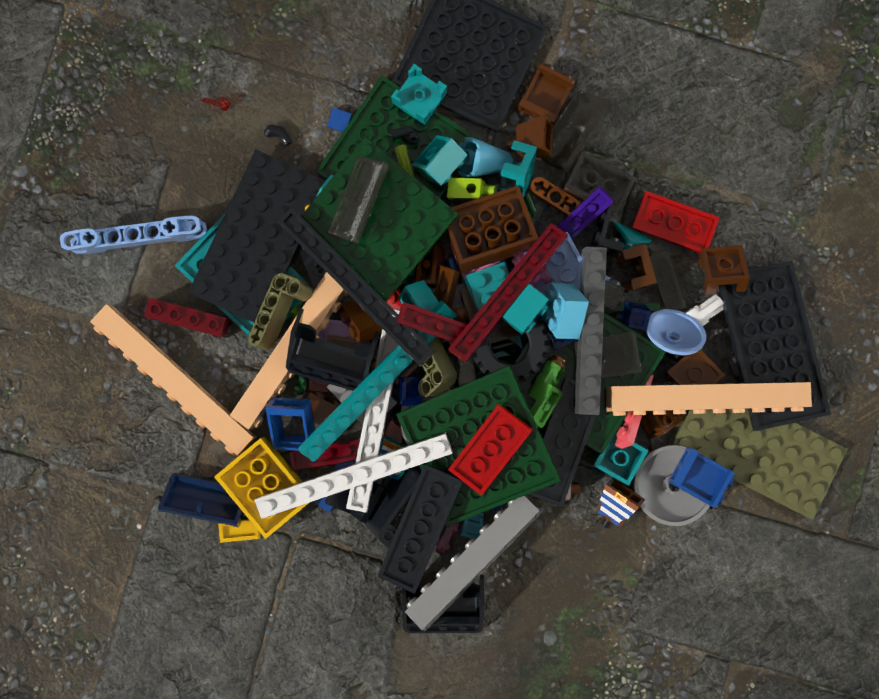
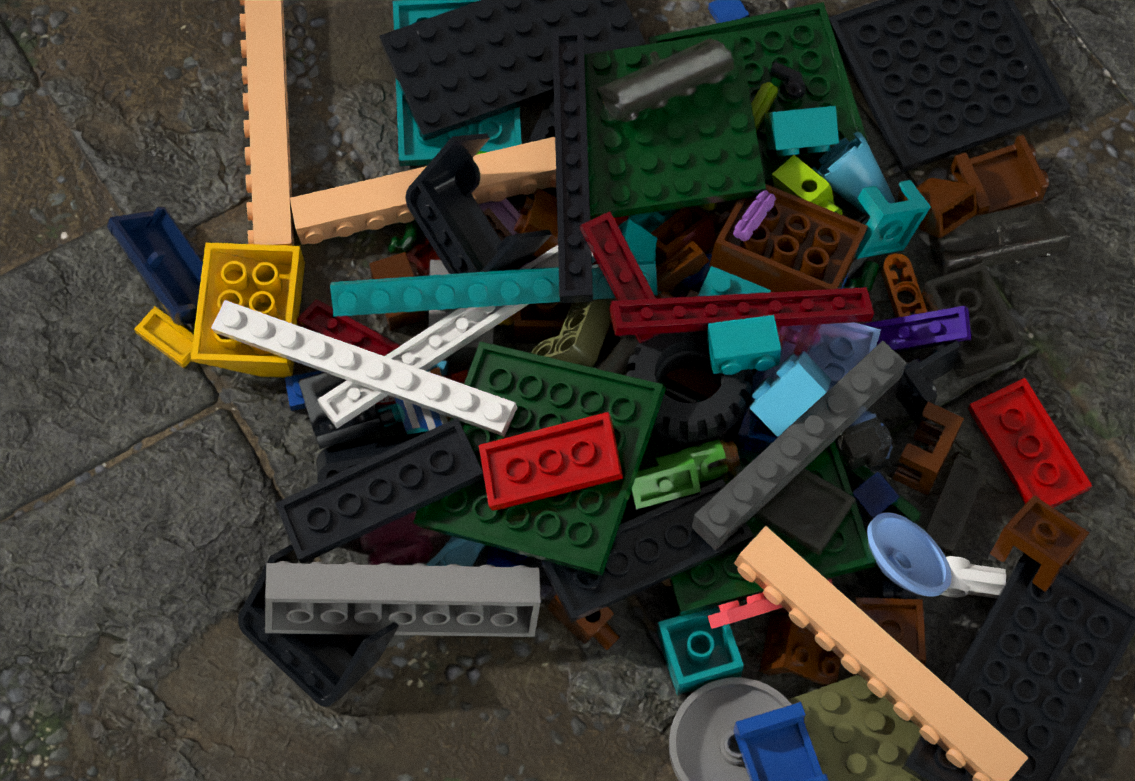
camera: 45 degrees right, 20 degrees down
(187, 317) = (350, 64): dark red brick -> none
(275, 309) = (490, 115): olive beam -> none
(289, 407) = (333, 247): blue window -> none
(408, 391) = (522, 336): clear blue panel -> none
(419, 95) = (845, 53): teal panel -> none
(465, 233) = (754, 215): none -> medium lavender axle
(617, 503) = (644, 701): torso -> none
(630, 236) = (955, 405): teal piece -> none

